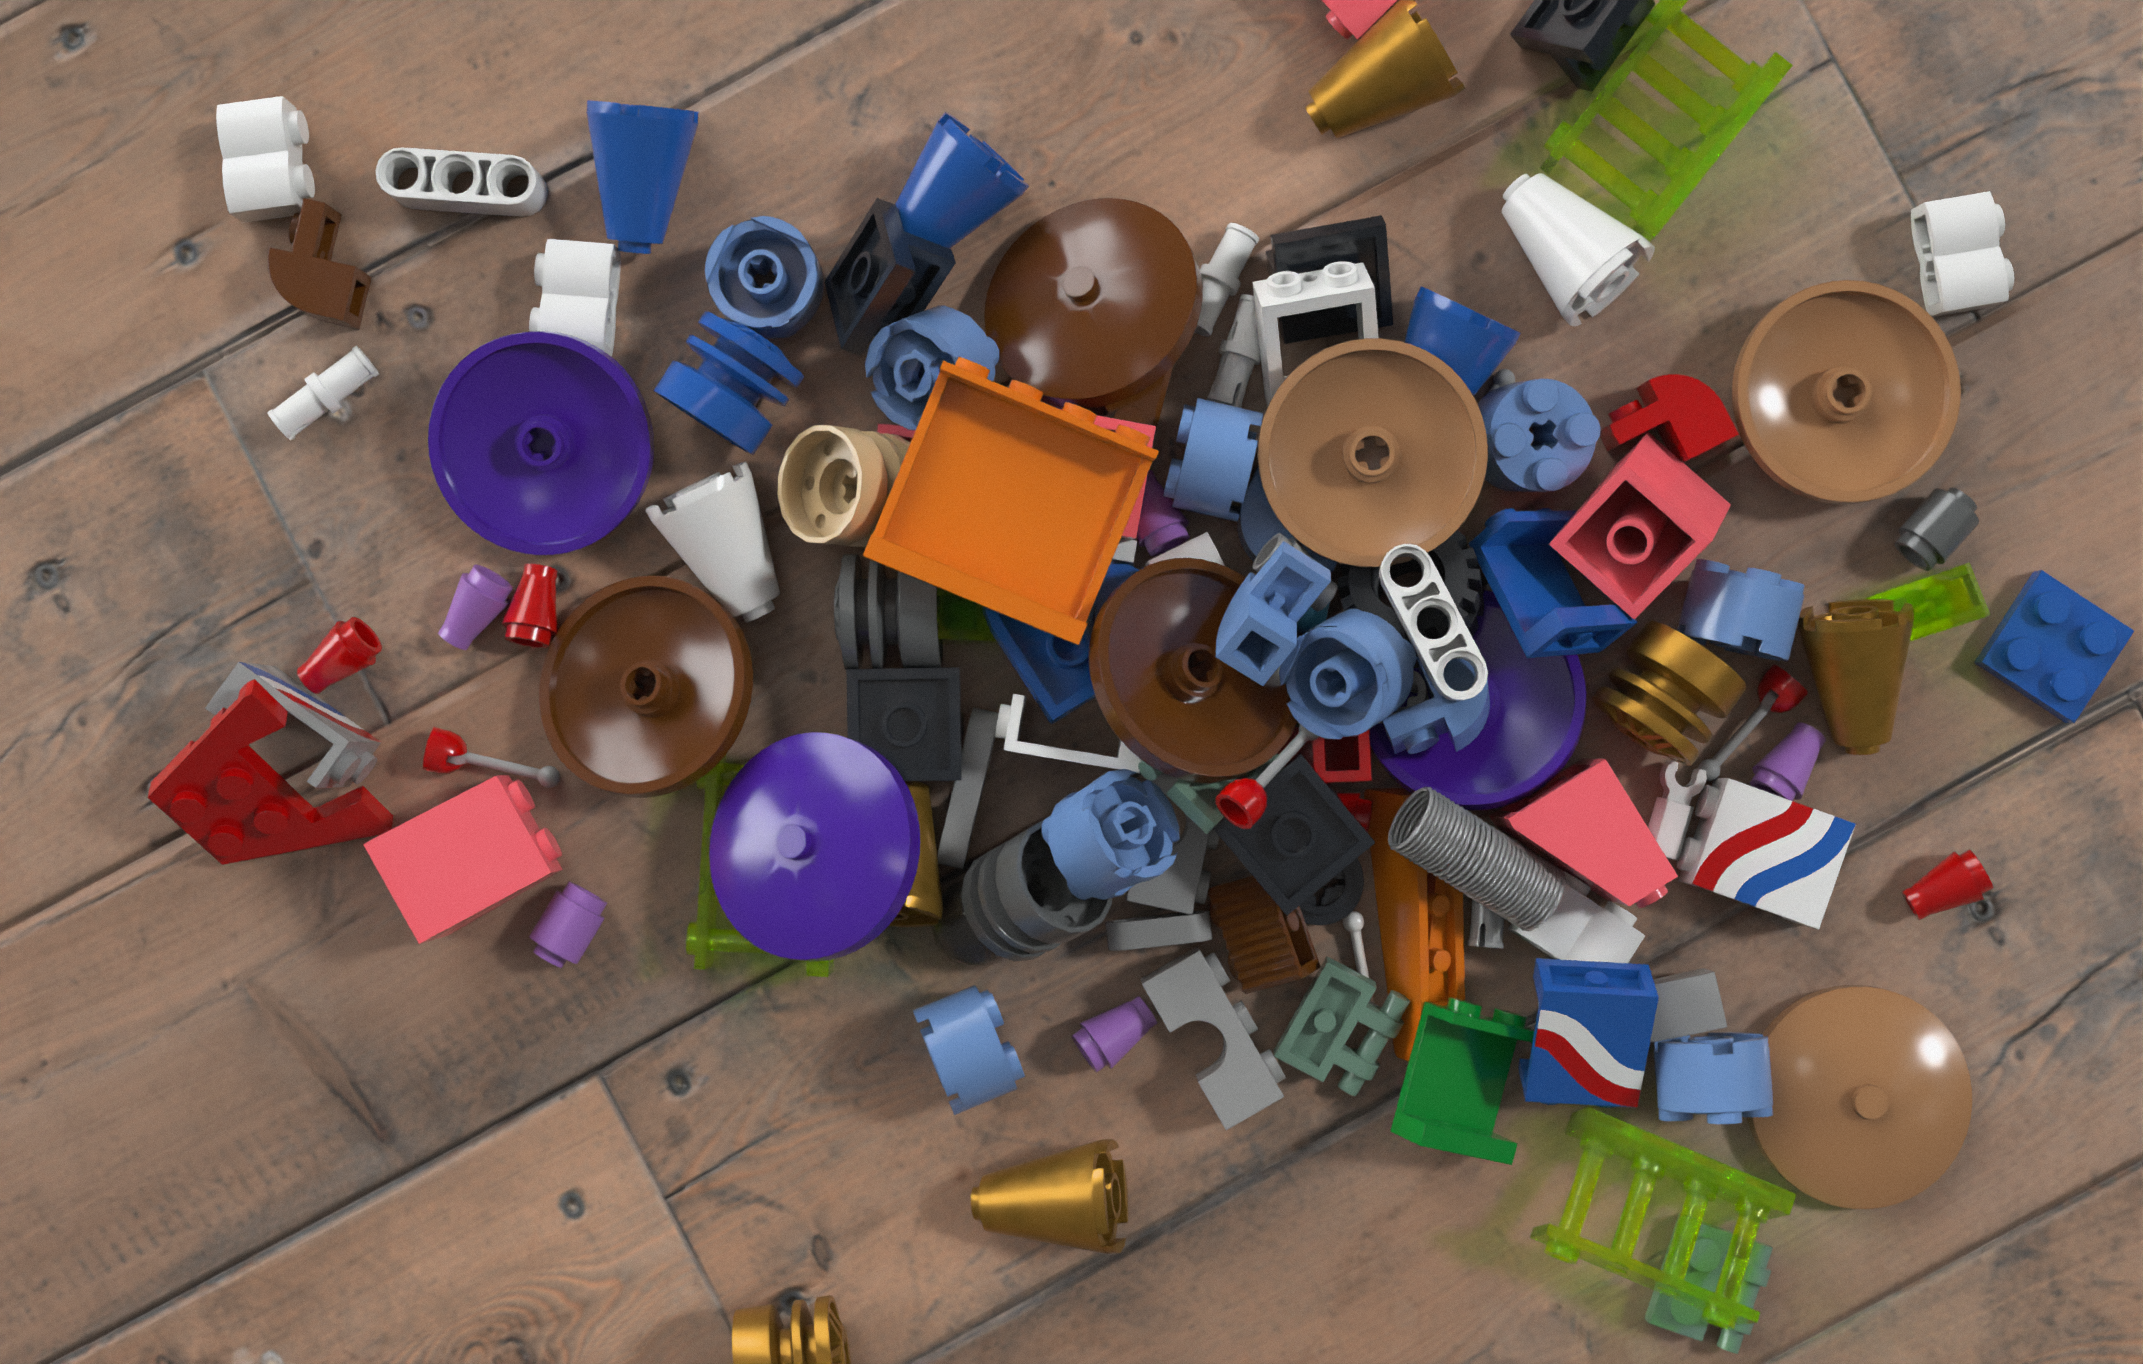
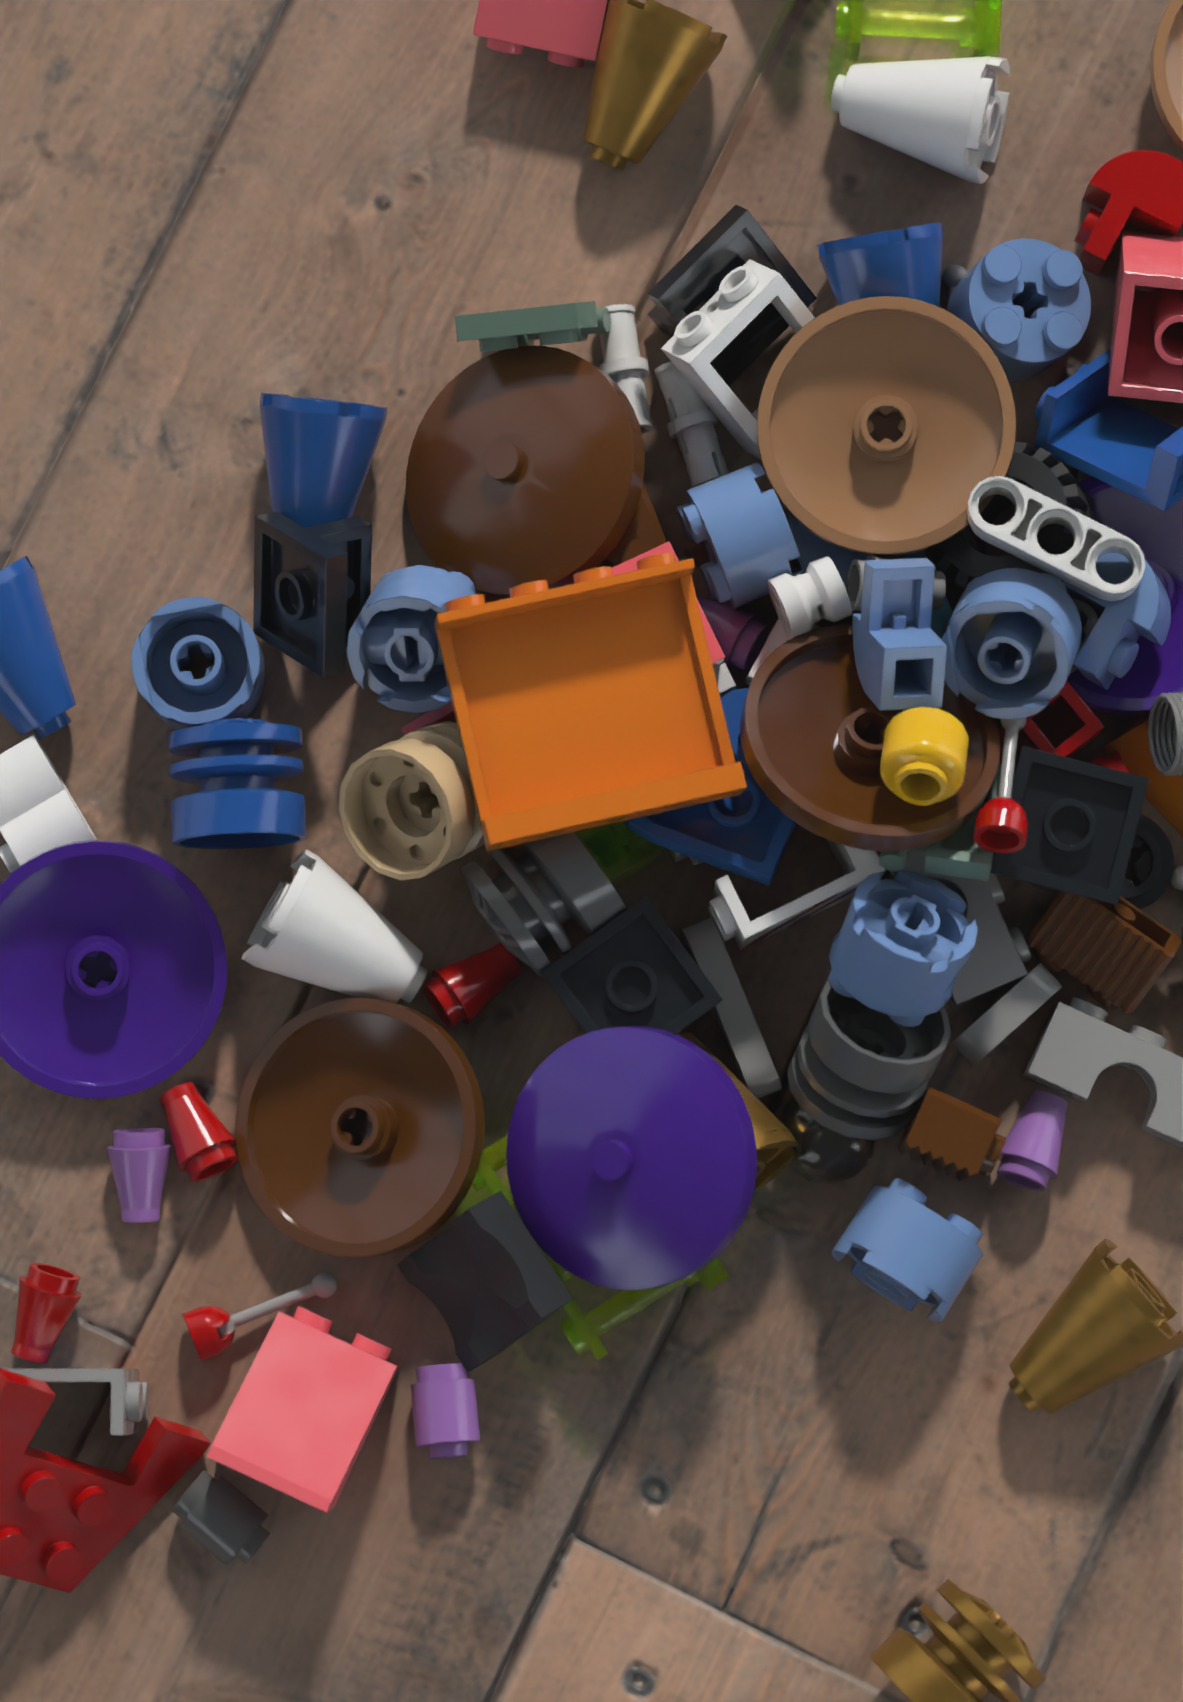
camera: 40 degrees left, 5 degrees down
(358, 891) = (221, 1519): none -> dark grey brick
(657, 858) = (486, 1280): none -> black brick
(797, 640) = (468, 985): none -> red cone
(1055, 992) = (952, 1136): none -> reddish brown brick
(1173, 201) = (523, 326): none -> sand green plate
(1222, 713) = (924, 755): none -> yellow head
(1229, 537) = (809, 597): none -> white wheel

